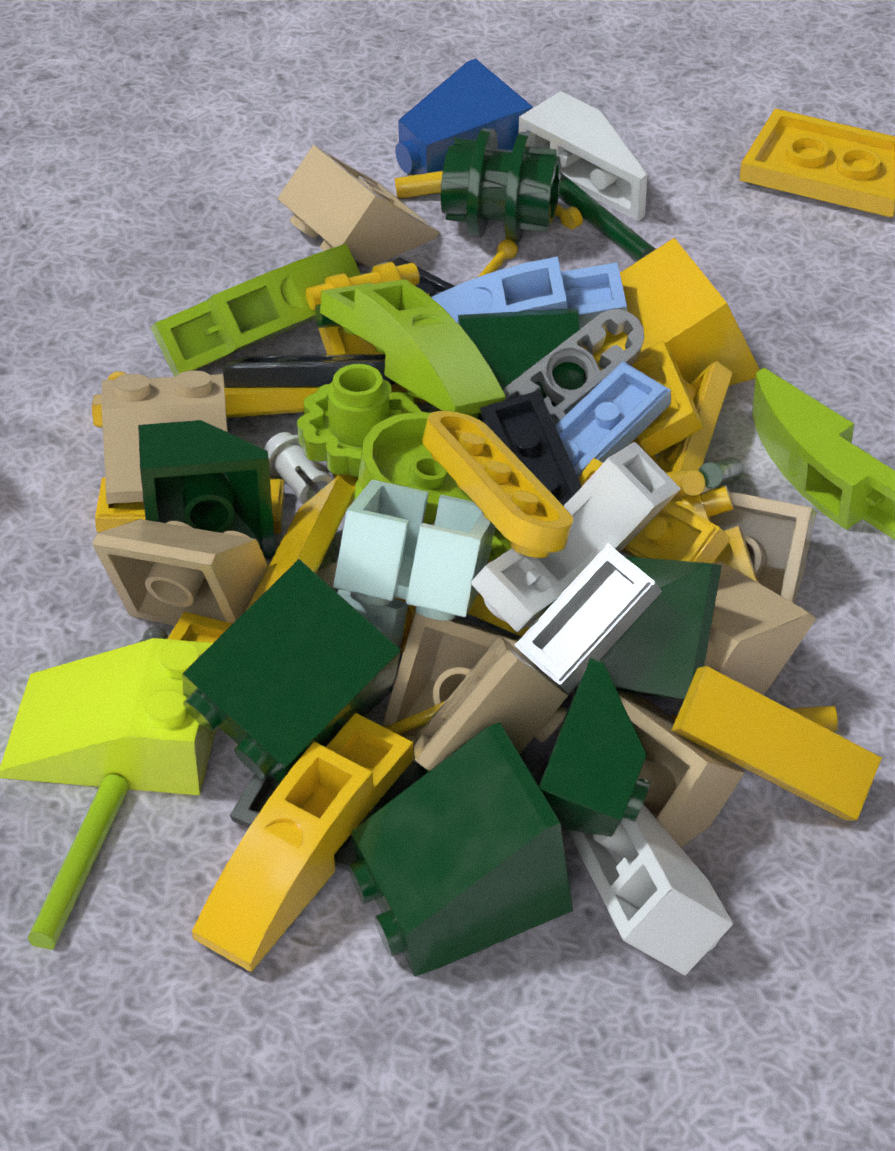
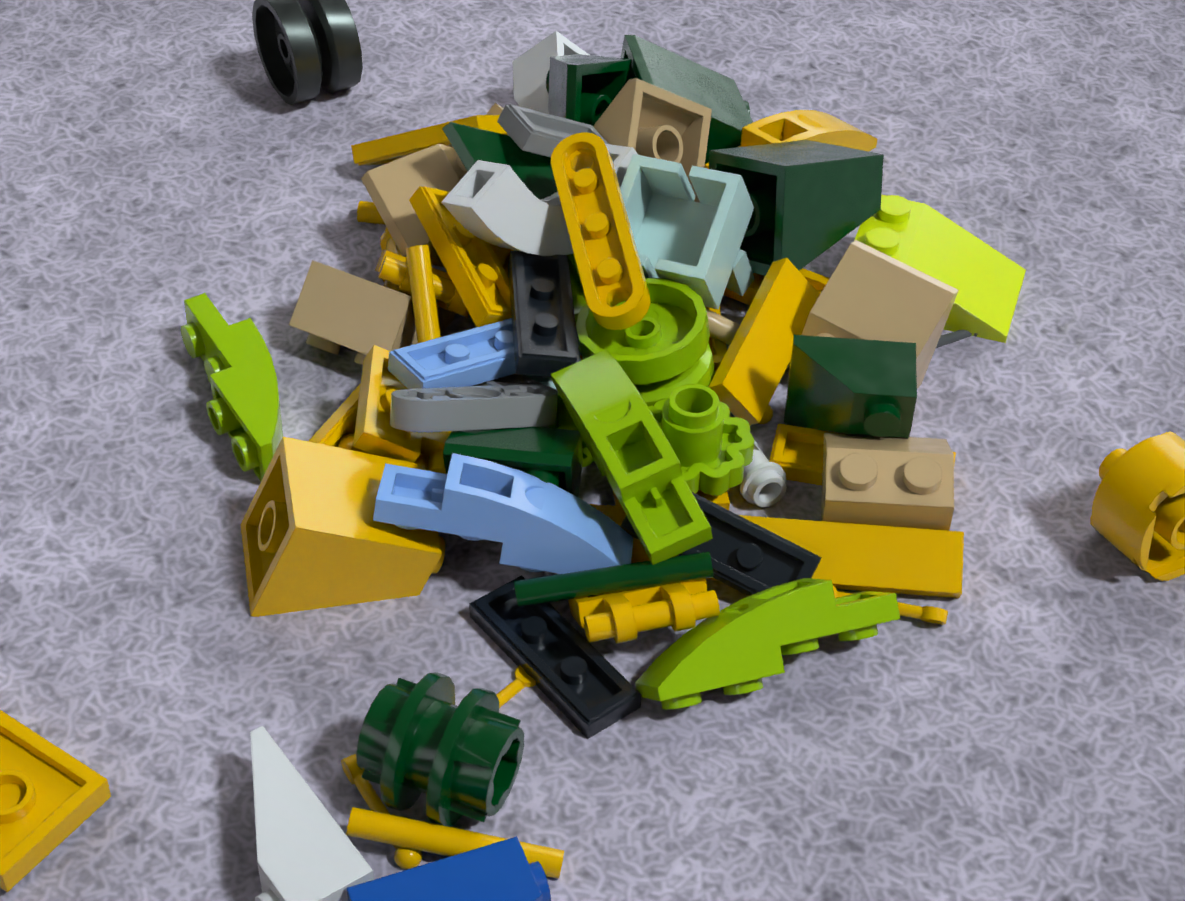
camera: 170 degrees left, 0 degrees up
(78, 862) = (967, 188): lime bar -> none
(351, 209) = (624, 791): tan slope -> none
(604, 220) = (314, 755): dark green bar -> none
(721, 472) = (365, 334): bar -> none

